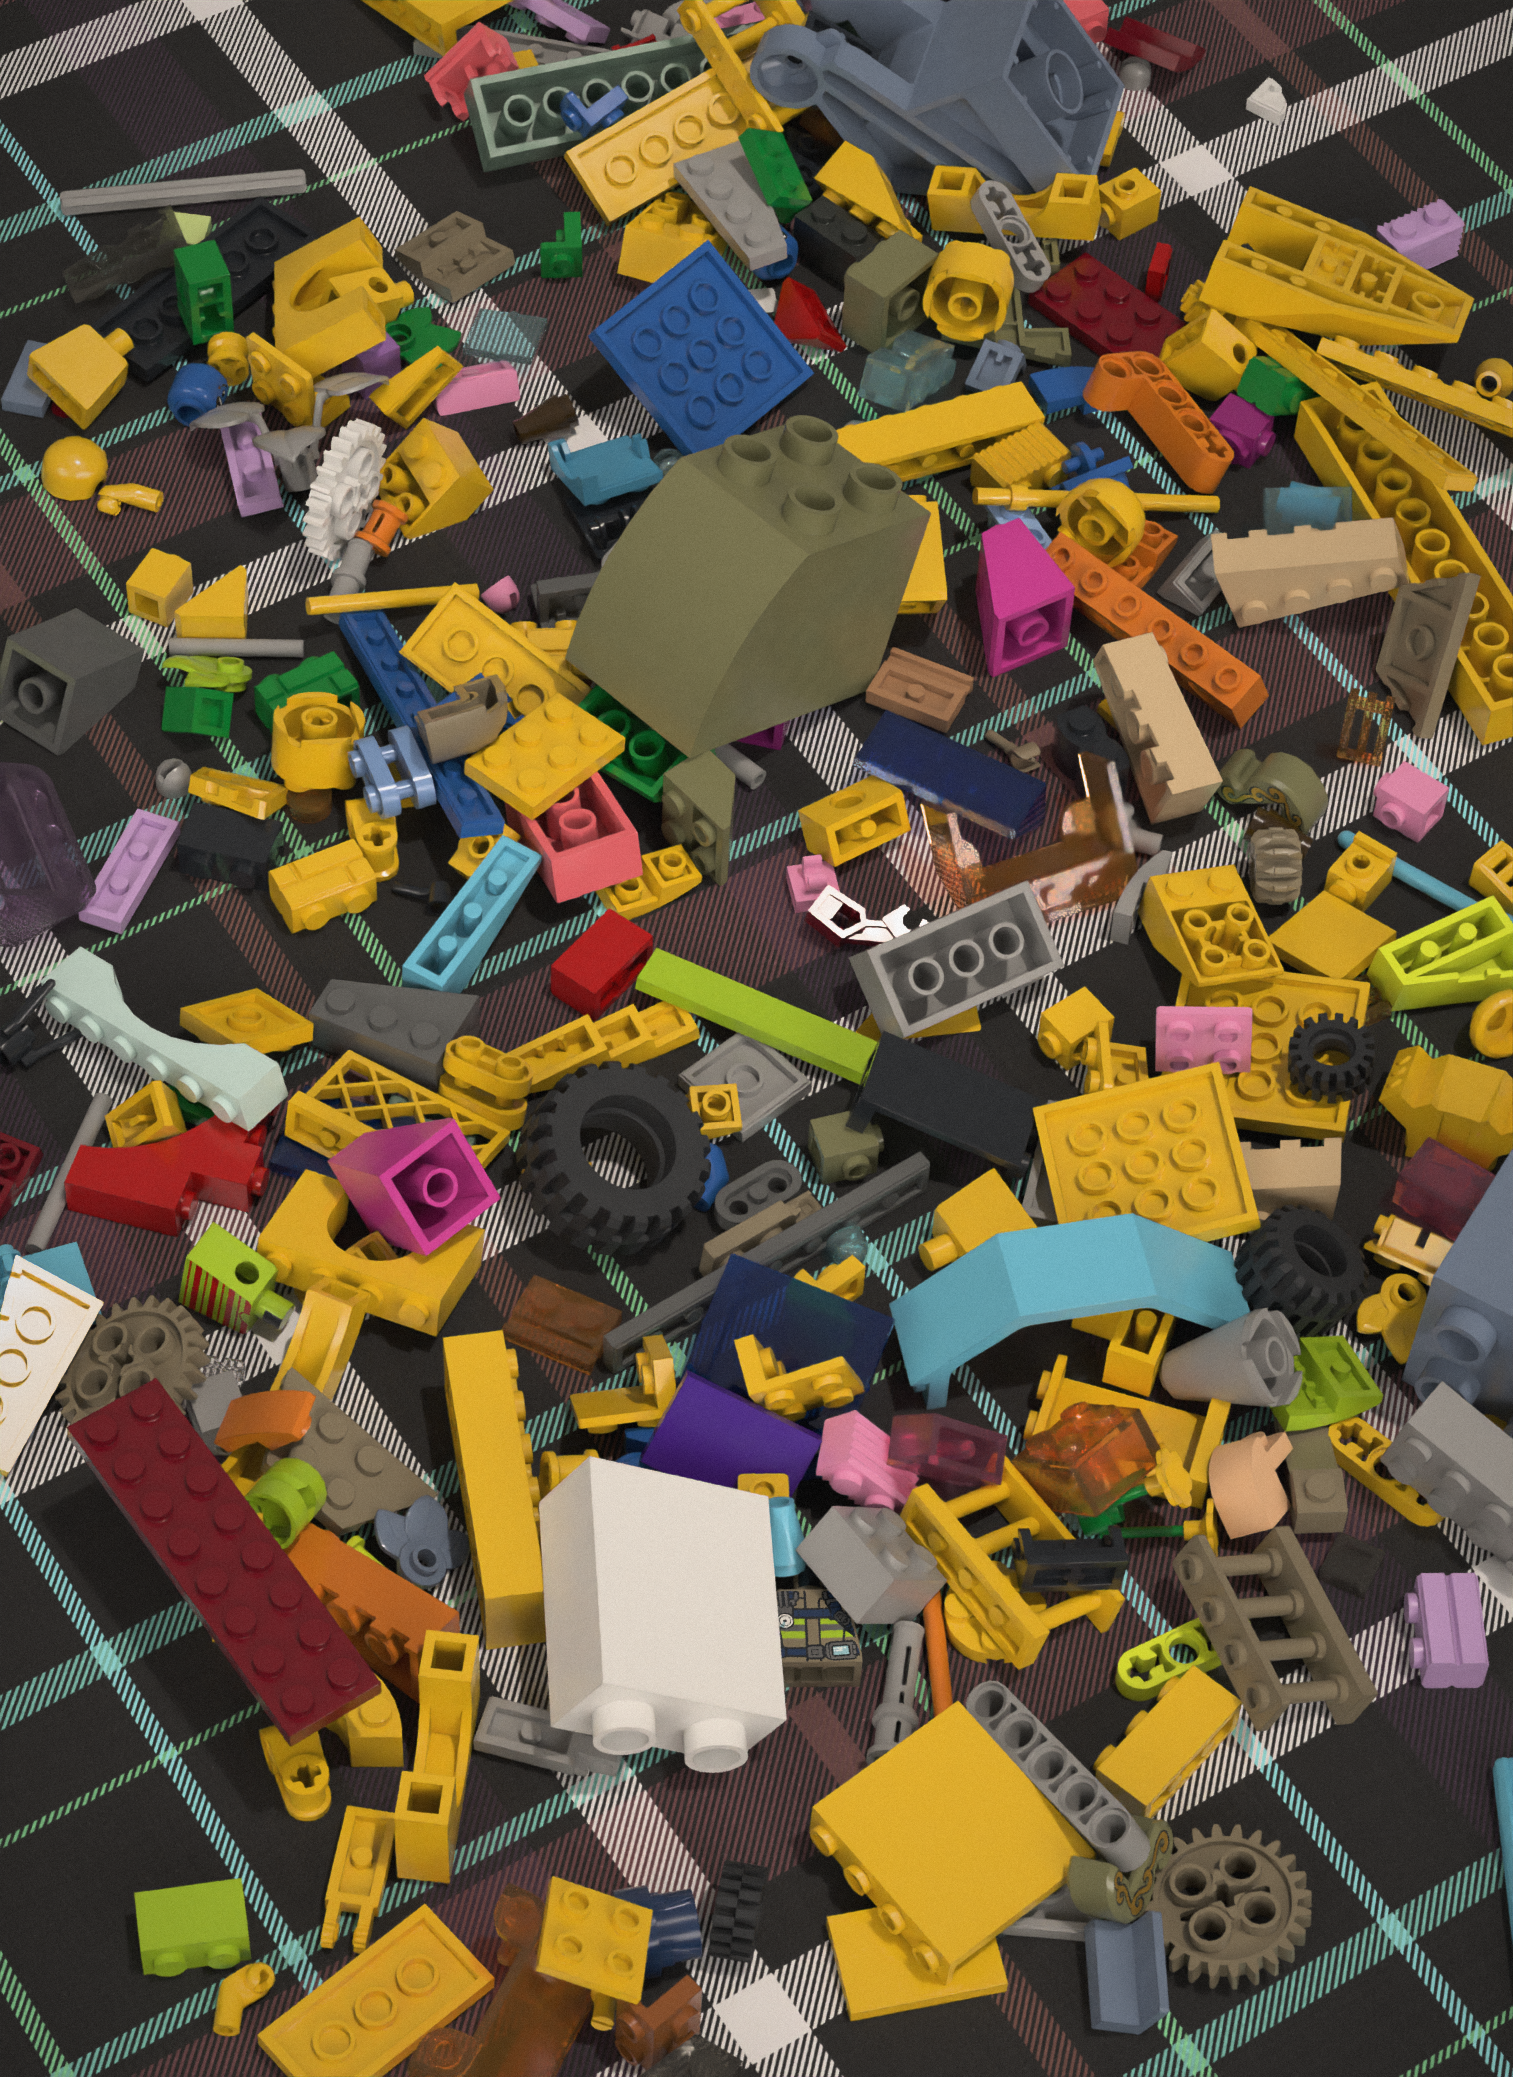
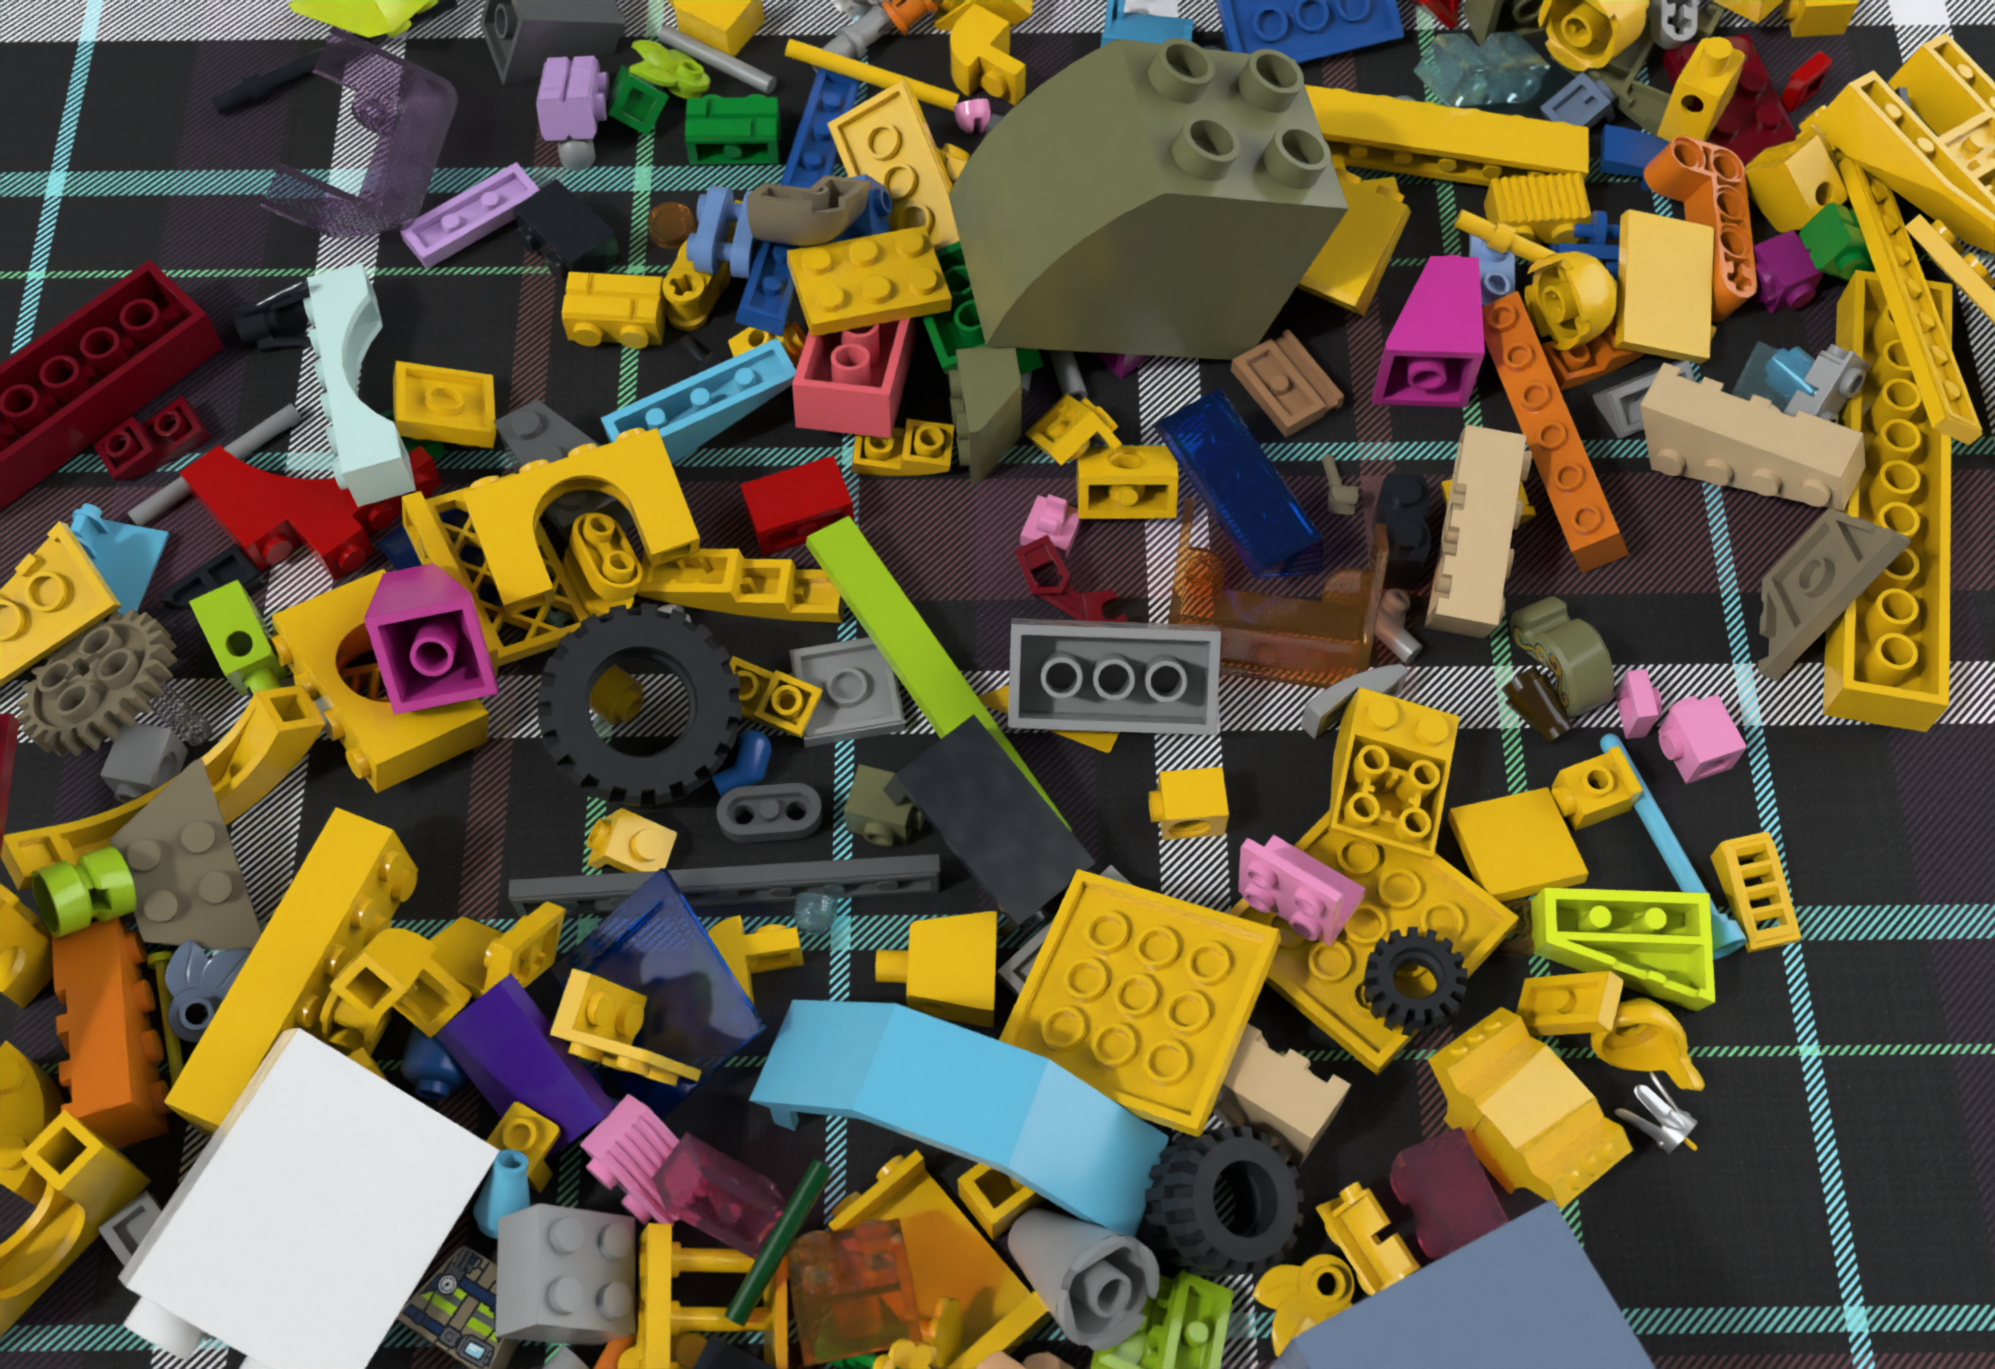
camera: 35 degrees right, 10 degrees up
(146, 1117) = (301, 452): yellow slope -> none
(148, 732) = (572, 98): none -> lavender brick
(152, 1261) = (221, 570): none -> black tile
(238, 792) = (609, 189): yellow wing -> none
(266, 1418) = (132, 801): orange slope -> none
(314, 741) = (692, 161): yellow brick -> none
(472, 548) = (981, 56): none -> yellow brick
(475, 990) = (630, 470): none -> yellow arch
(561, 1324) = (506, 840): clear orange plate -> none
(604, 1426) = (399, 973): none -> yellow brick
(662, 1271) = (629, 843): none -> yellow bracket
(756, 1231) = (738, 850): dark tan hinge -> none
(784, 799) = (1069, 425): none -> yellow bracket
(1012, 1455) = (778, 1242): none -> dark green bar
(1093, 297) = (1710, 76): none -> yellow torso
(1111, 1063) = (1199, 869): yellow bracket -> none
(1166, 478) = (1664, 286): none -> yellow tile
(1275, 865) = (1507, 737): dark tan gear -> none
(1342, 490) = (1837, 378): none -> light grey hinge
(1348, 799) = (1637, 703): none -> bright pink plate
(1371, 706) = (1711, 624): clear orange tile -> none
(1446, 1019) = (1570, 1003): none -> yellow plate

